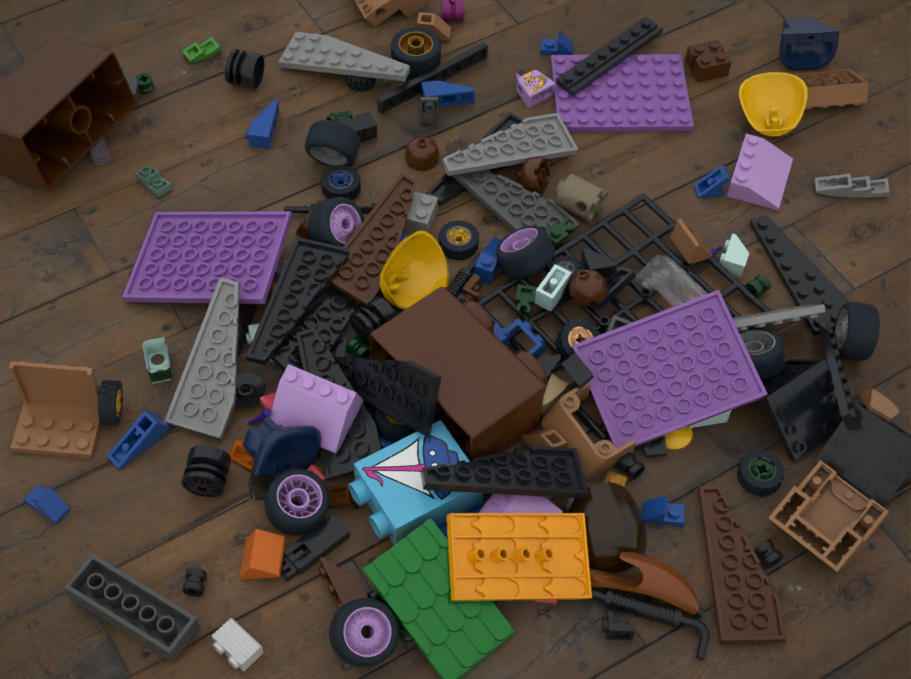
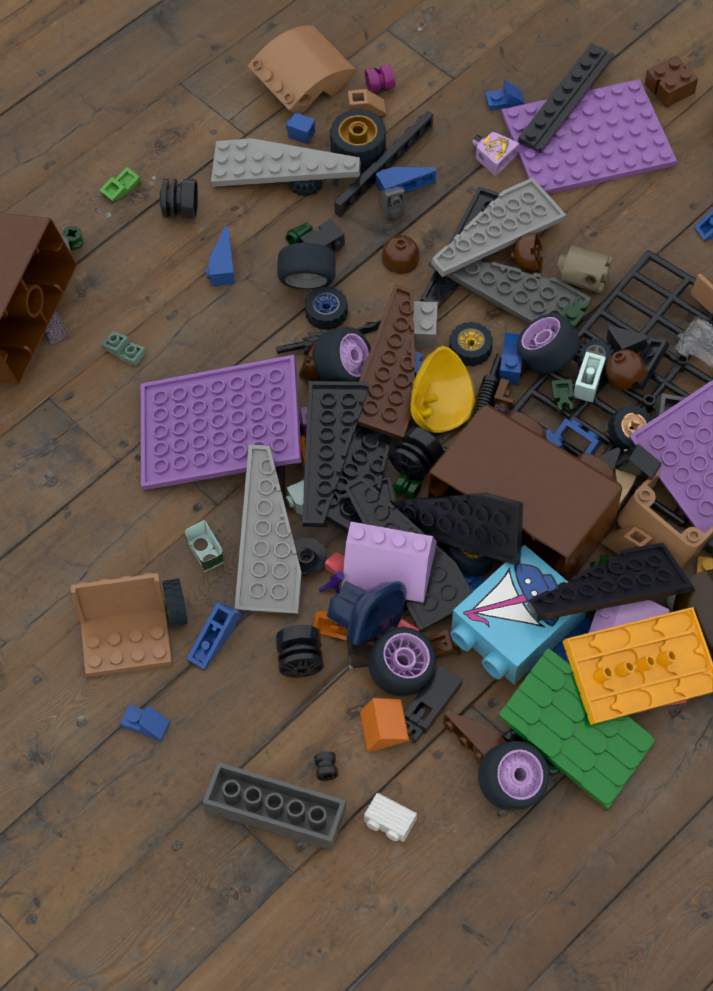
camera: 10 degrees left, 5 degrees up
(371, 35) = (301, 128): none -> blue brick

